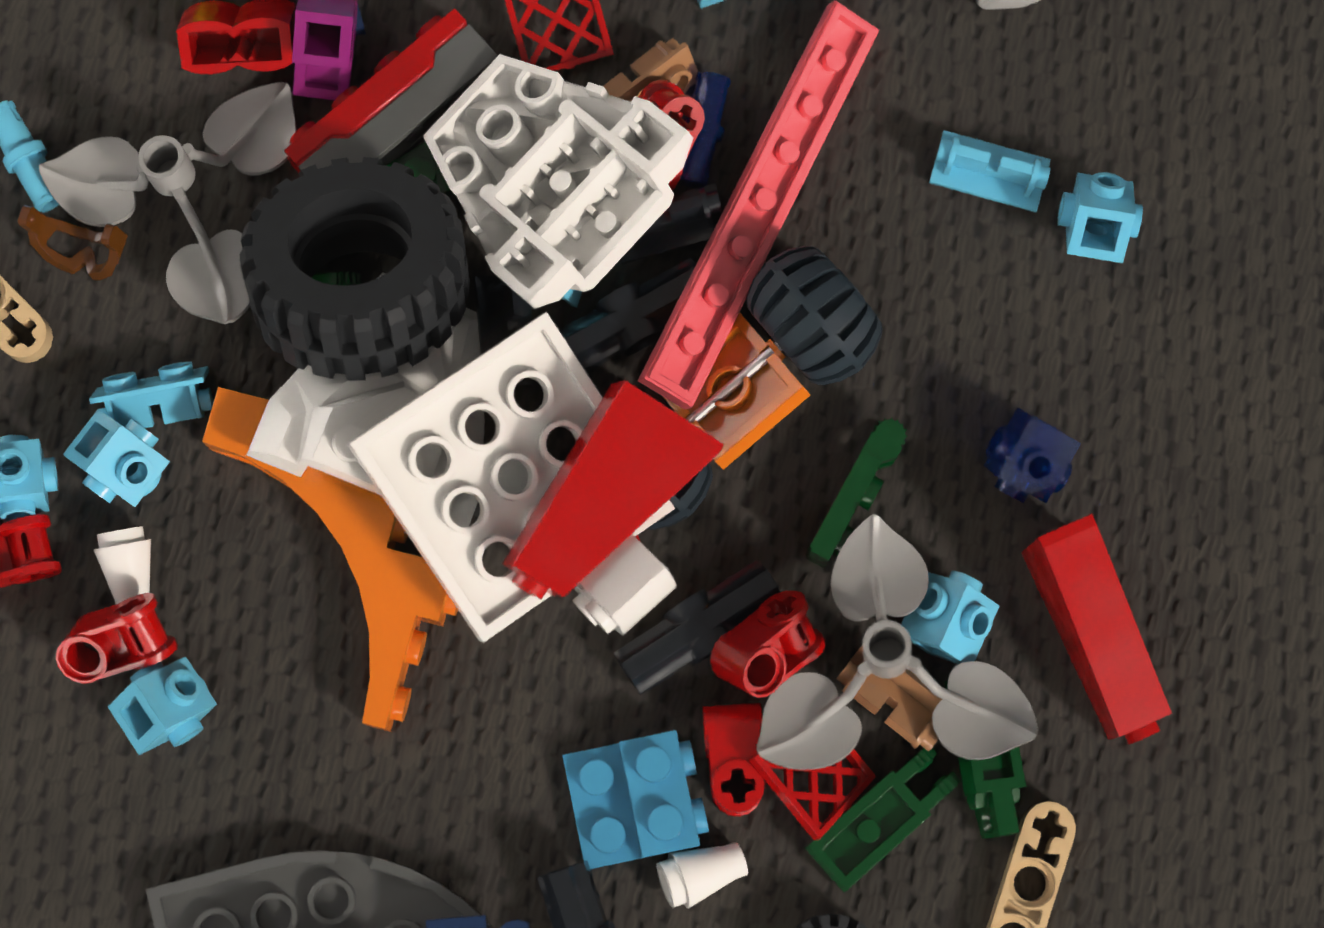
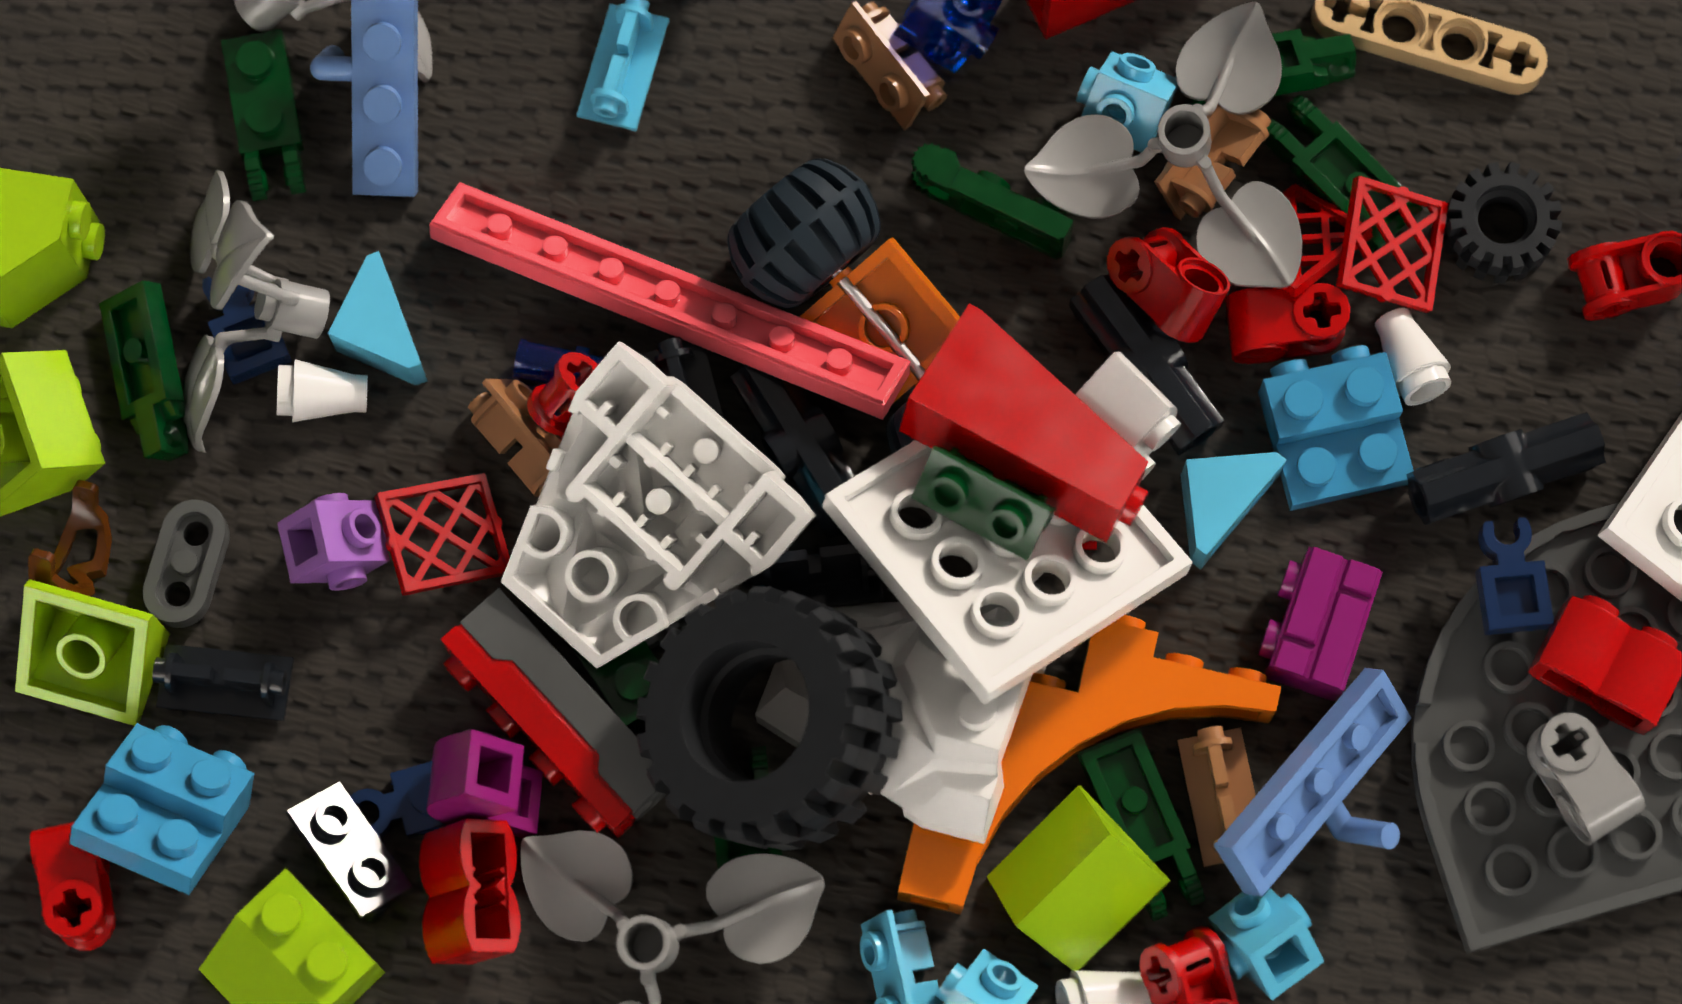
camera: 90 degrees left, 5 degrees down
(225, 542) = (1076, 880): none -> lime slope
(283, 604) = (1136, 799): none -> dark green hinge
(294, 755) = (1314, 784): none -> medium blue plate
(298, 679) = (1216, 784): none -> medium nougat hinge
(449, 772) = (1321, 622): none -> magenta brick
(548, 426) = (982, 502): none -> dark green hinge
(569, 687) = (1220, 495): none -> medium azure slope
(809, 818) = (1353, 237): none -> red window
(973, 413) = (899, 83): none -> medium nougat hinge

